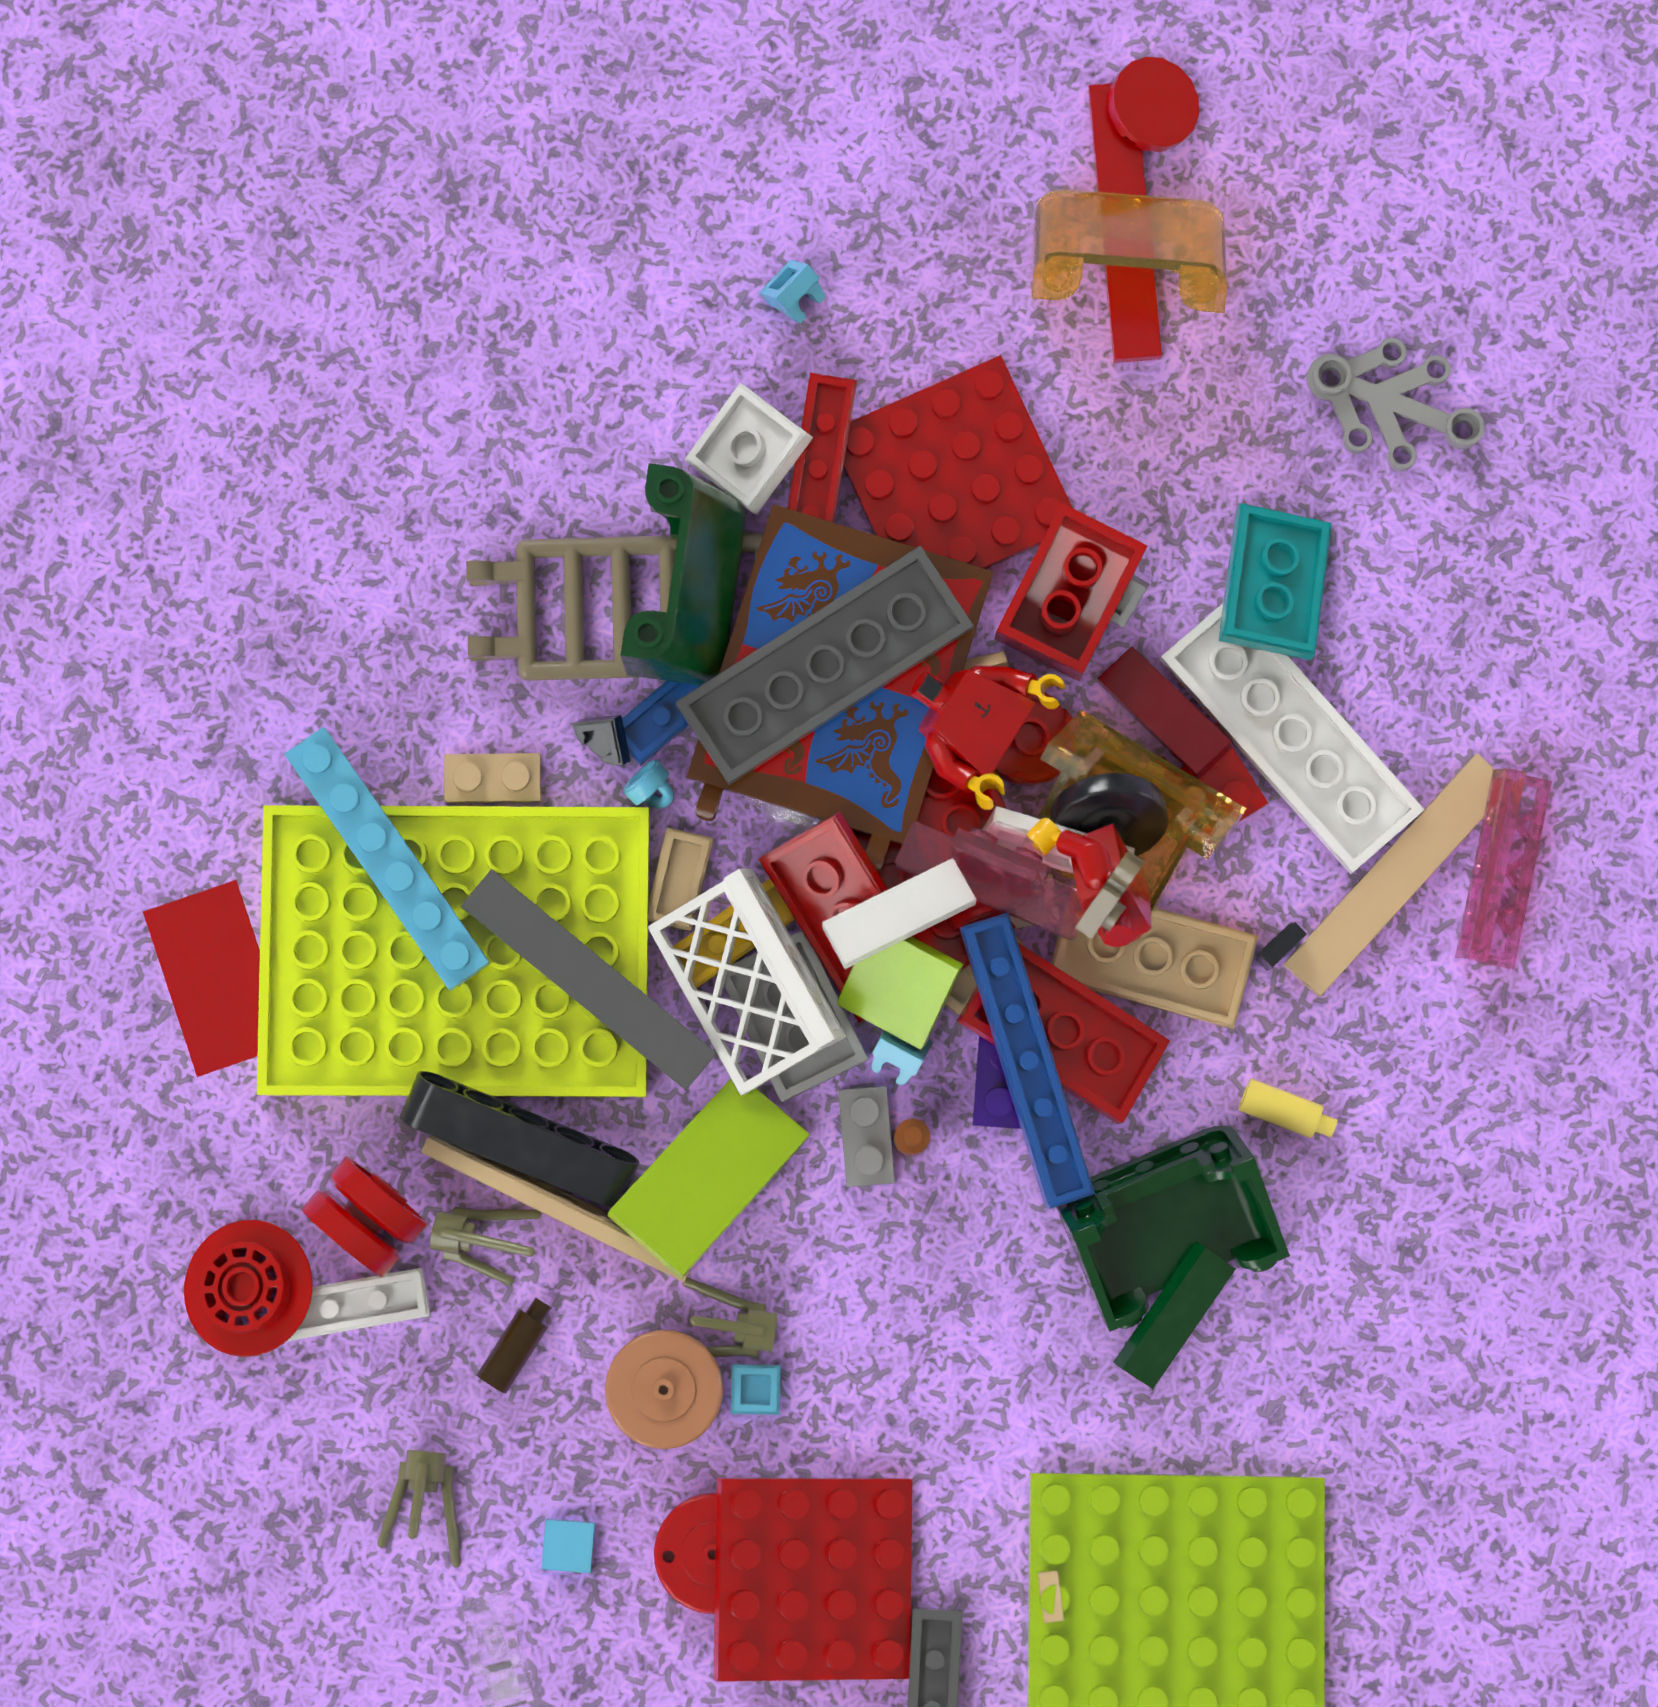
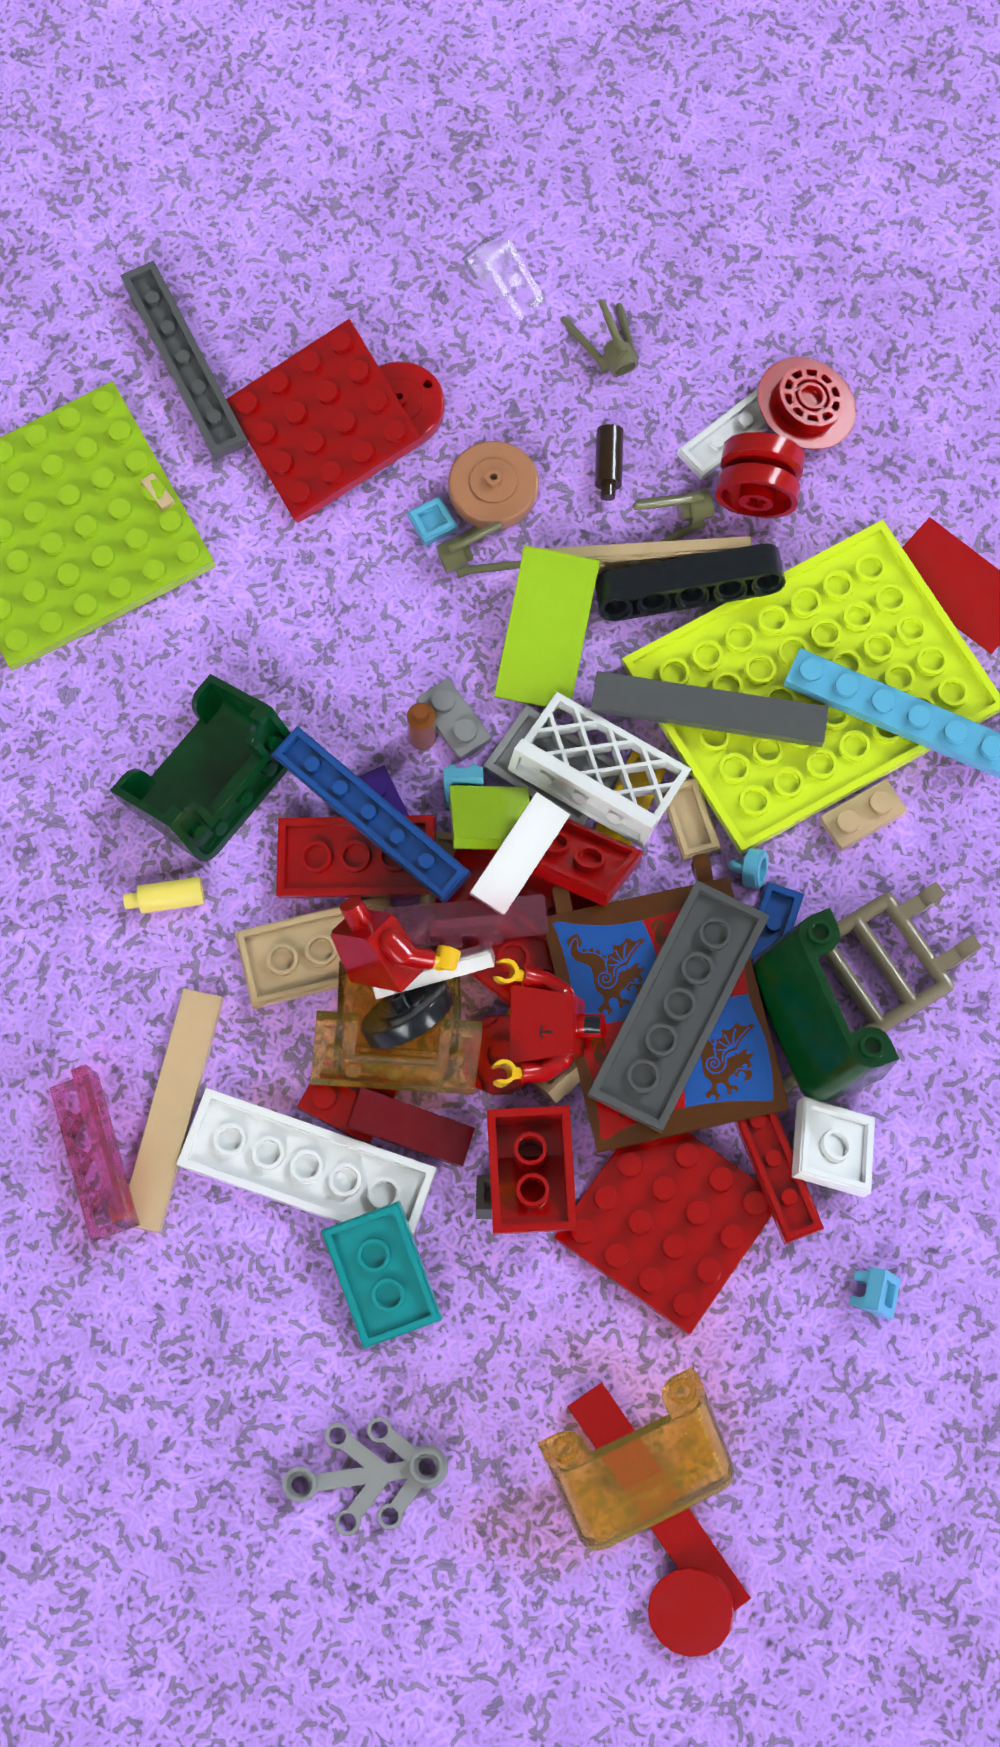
camera: 150 degrees right, 10 degrees down
(568, 1546) = (497, 364): medium azure tile -> none
(604, 737) = (803, 885): tile -> none
(1105, 907) = (371, 911): dark tan plate -> none
(1174, 1315) = (171, 714): dark green tile -> none
(1280, 945) = (231, 1005): black tile -> none

